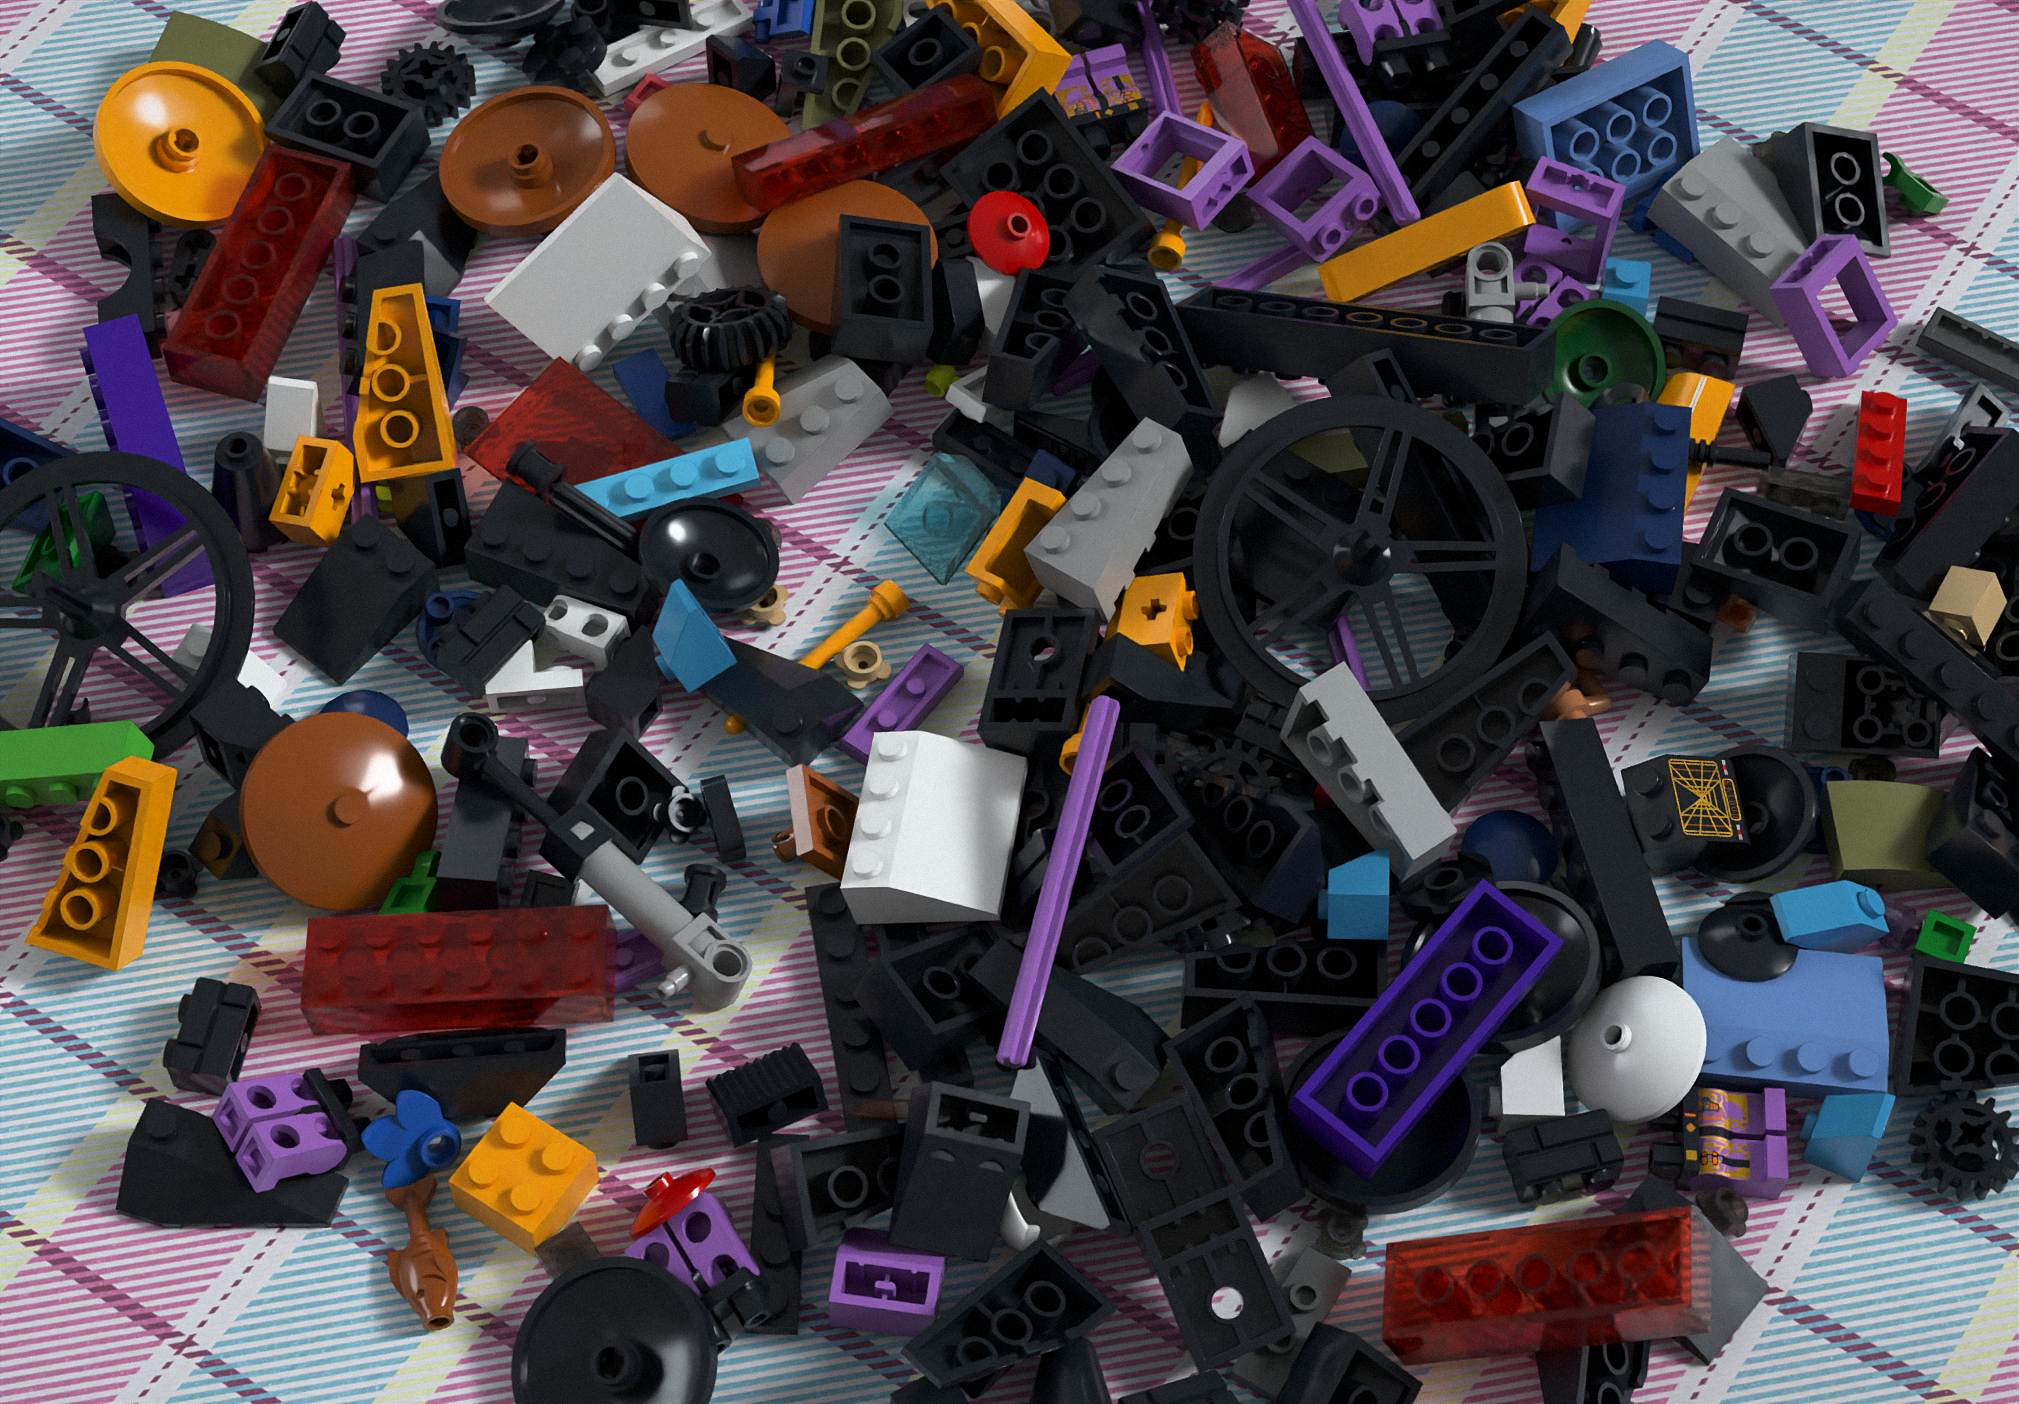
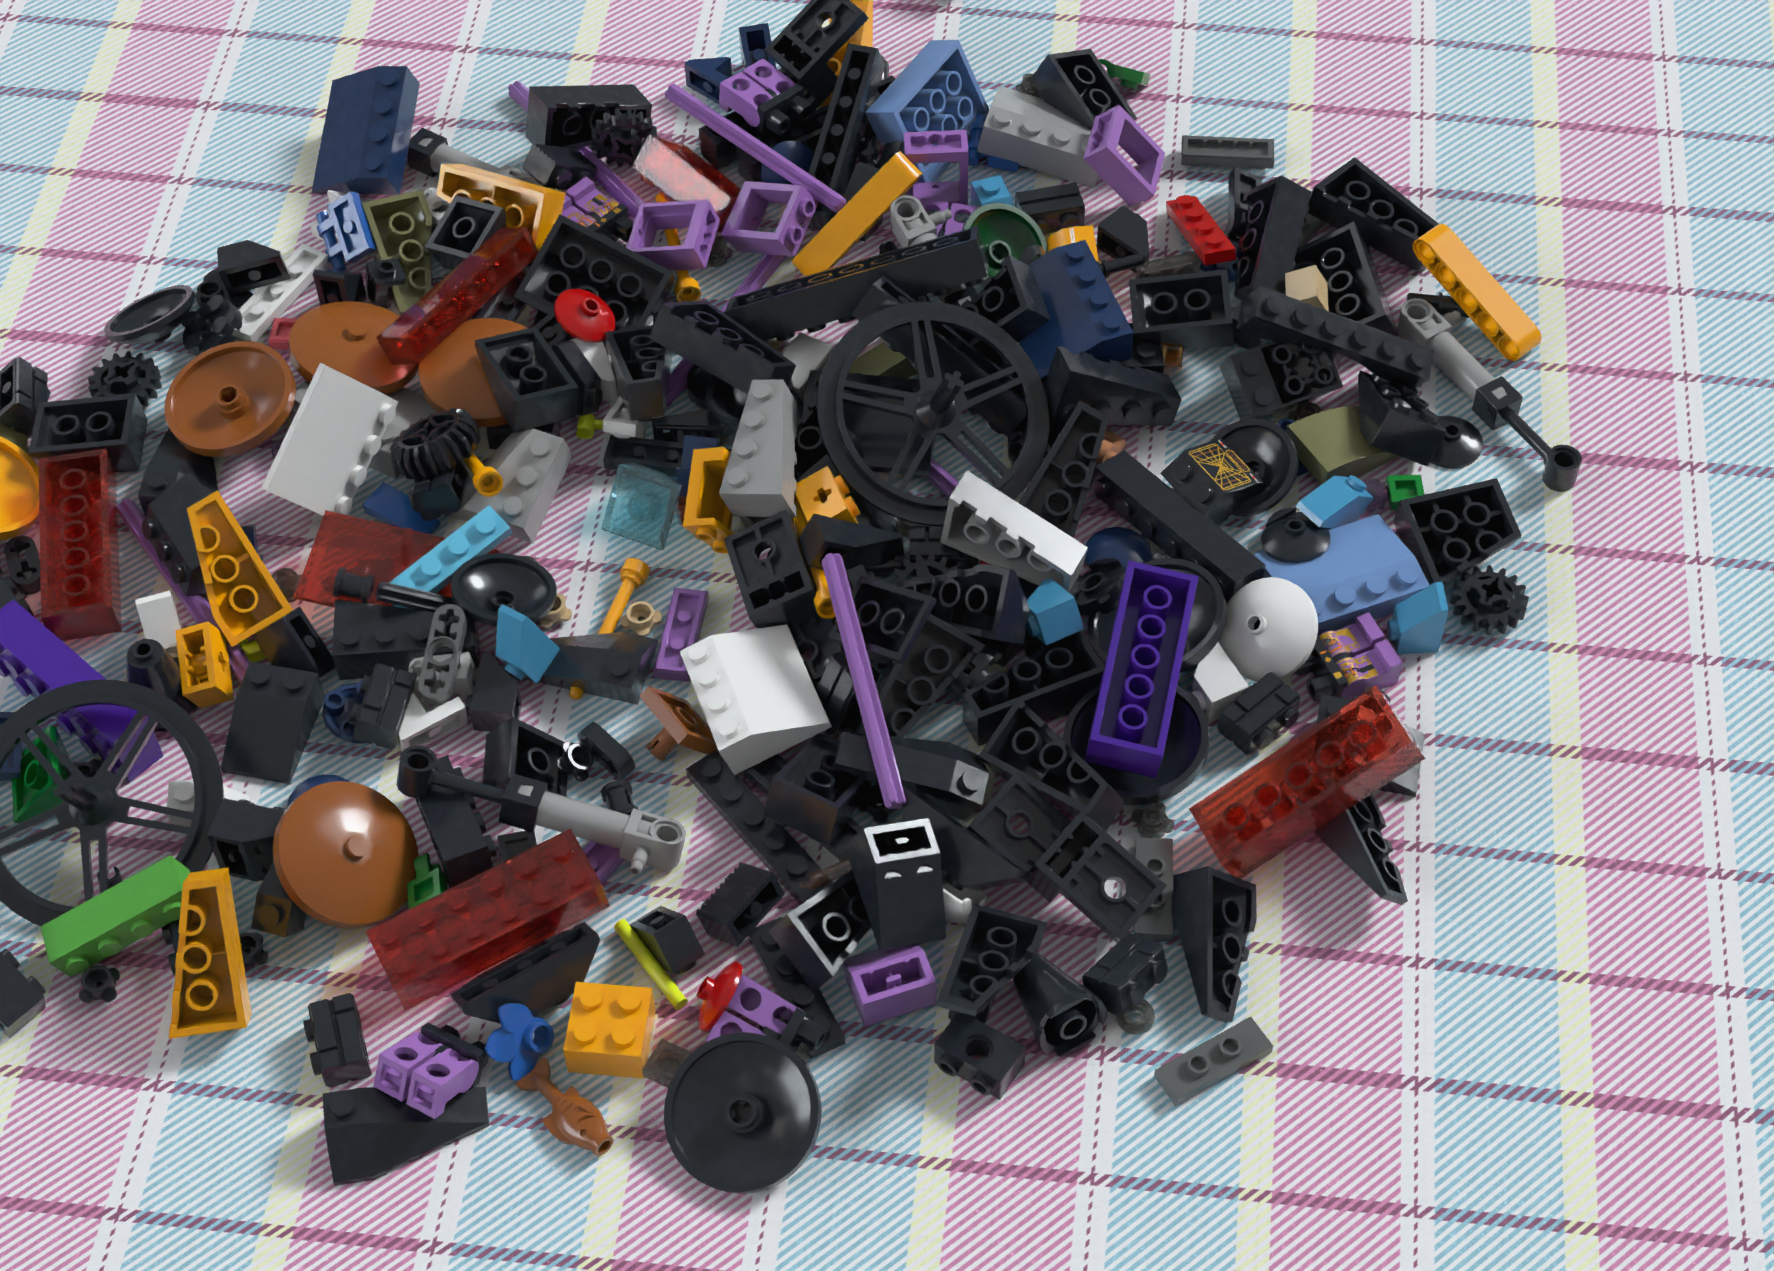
camera: 25 degrees left, 5 degrees down
(556, 628) = (447, 669): none -> dark grey beam
(623, 1119) = (650, 964): none -> neon yellow bar

